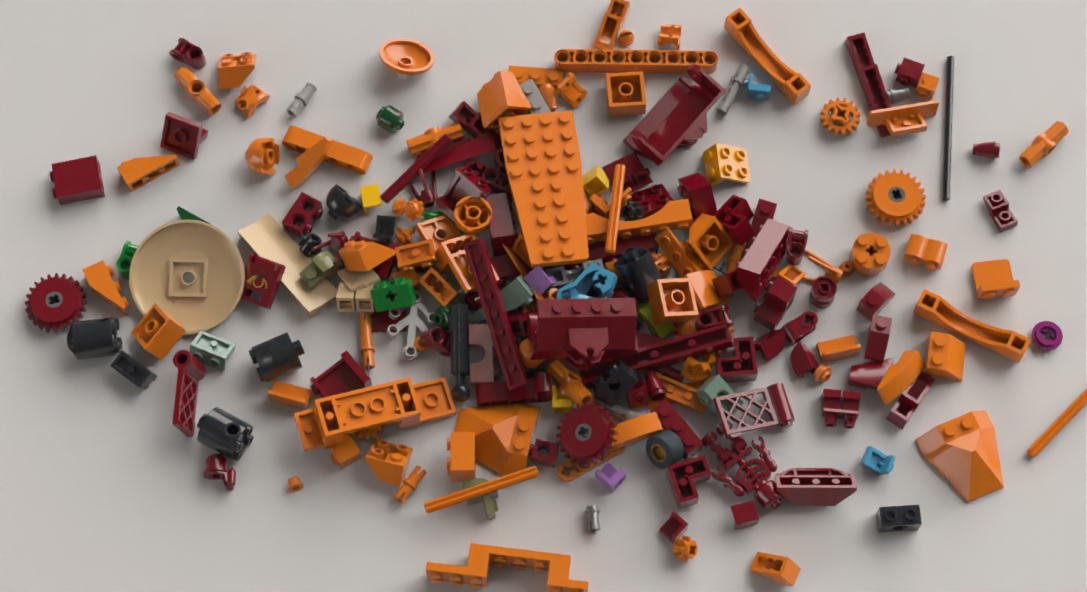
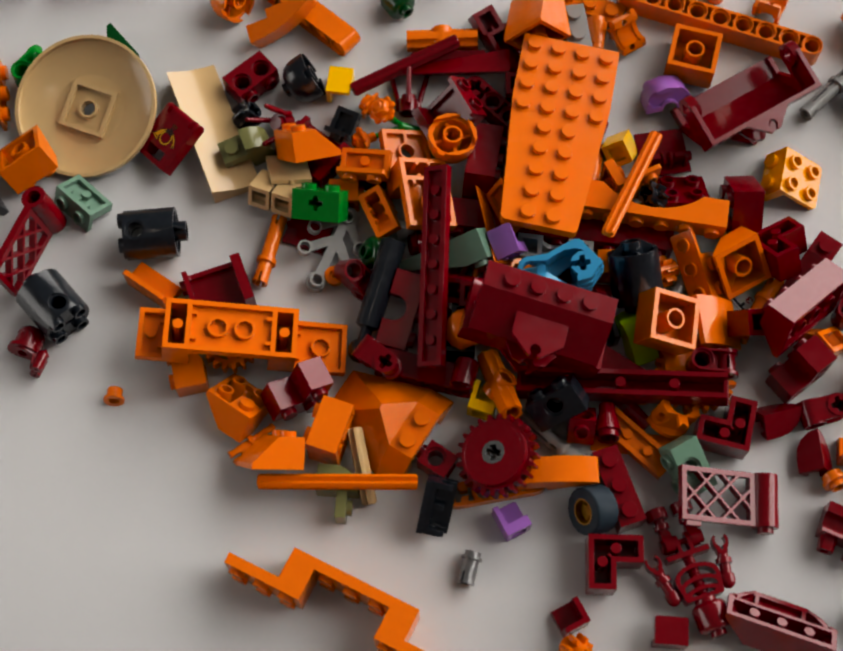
camera: 20 degrees right, 0 degrees up
(429, 436) = (299, 391): none -> dark red brick
(431, 482) = (275, 452): none -> orange slope
(474, 393) = (376, 355): none -> dark red piece
(491, 470) = (361, 461): none -> tan axle
(556, 483) = (437, 506): none -> black hinge
(612, 128) = (661, 91): none -> medium lavender cylinder

